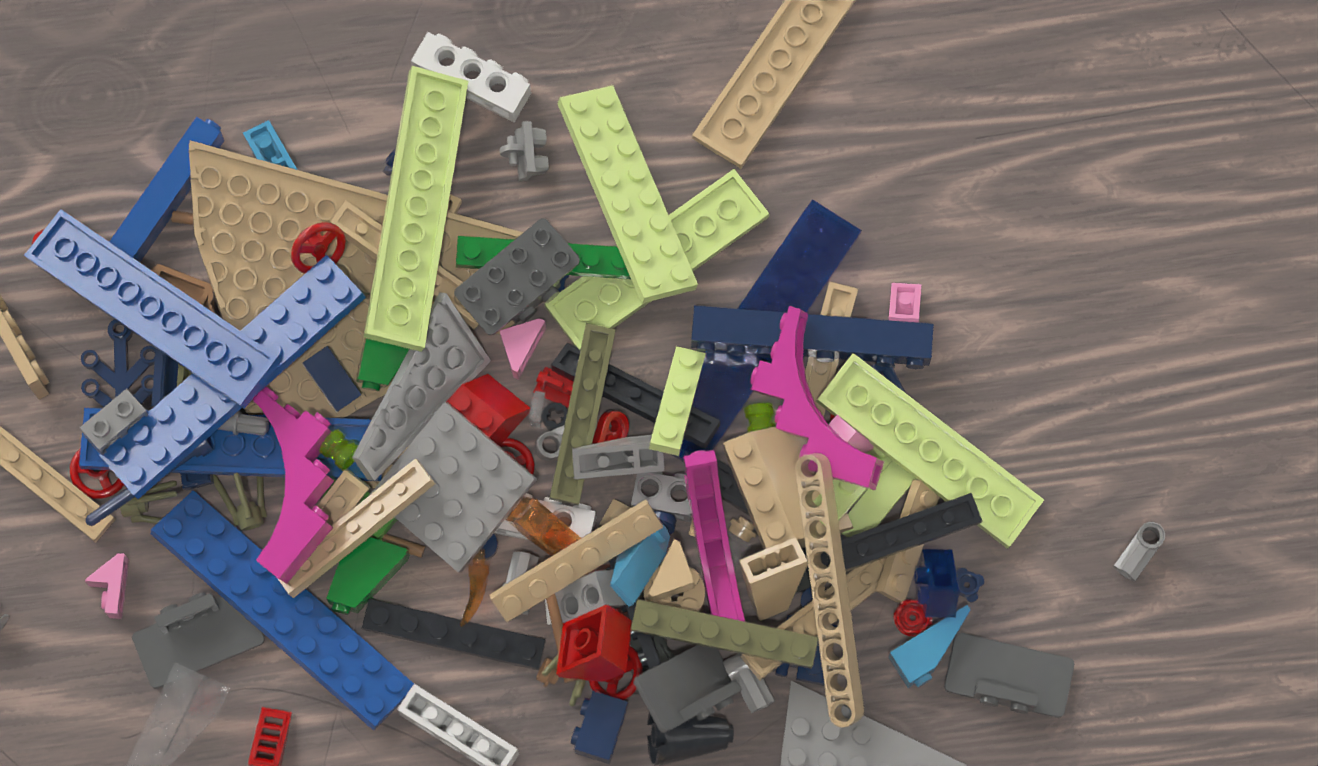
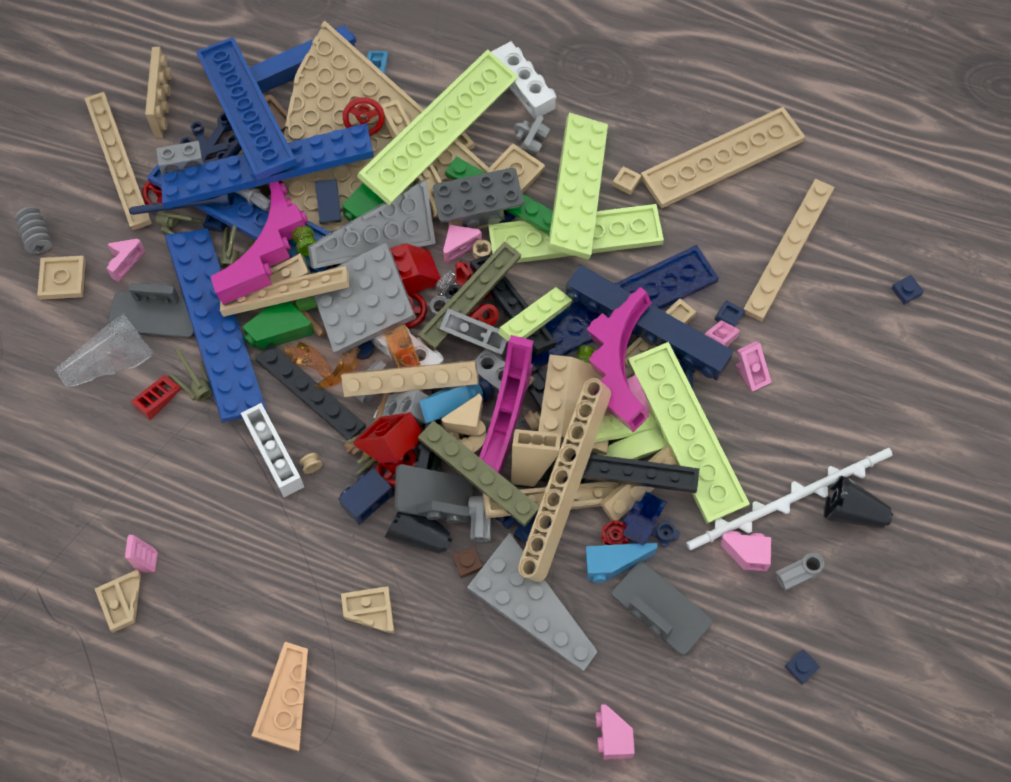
camera: 30 degrees right, 10 degrees down
(49, 652) = (61, 277): none -> tan plate
(318, 701) = (200, 388): none -> olive plant
(425, 590) = (308, 356): none -> clear orange bar
(510, 722) = (310, 463): none -> tan bush
(532, 200) = (527, 167): none -> tan plate
(547, 334) = (481, 244): none -> tan bush
(679, 153) = (626, 180): none -> tan plate
(761, 740) = (467, 562): none -> reddish brown plate
(897, 269) = (730, 314): none -> dark blue tile
(923, 145) = (788, 250): none -> tan plate
(961, 326) = (753, 366): none -> bright pink slope
(1072, 557) = (749, 551): none -> bright pink slope
(1080, 478) = (783, 504): none -> white plant
(1088, 127) = (907, 289): none -> dark blue plate
(1162, 439) = (856, 505): none -> black cone
(1196, 659) = (802, 667): none -> dark blue plate

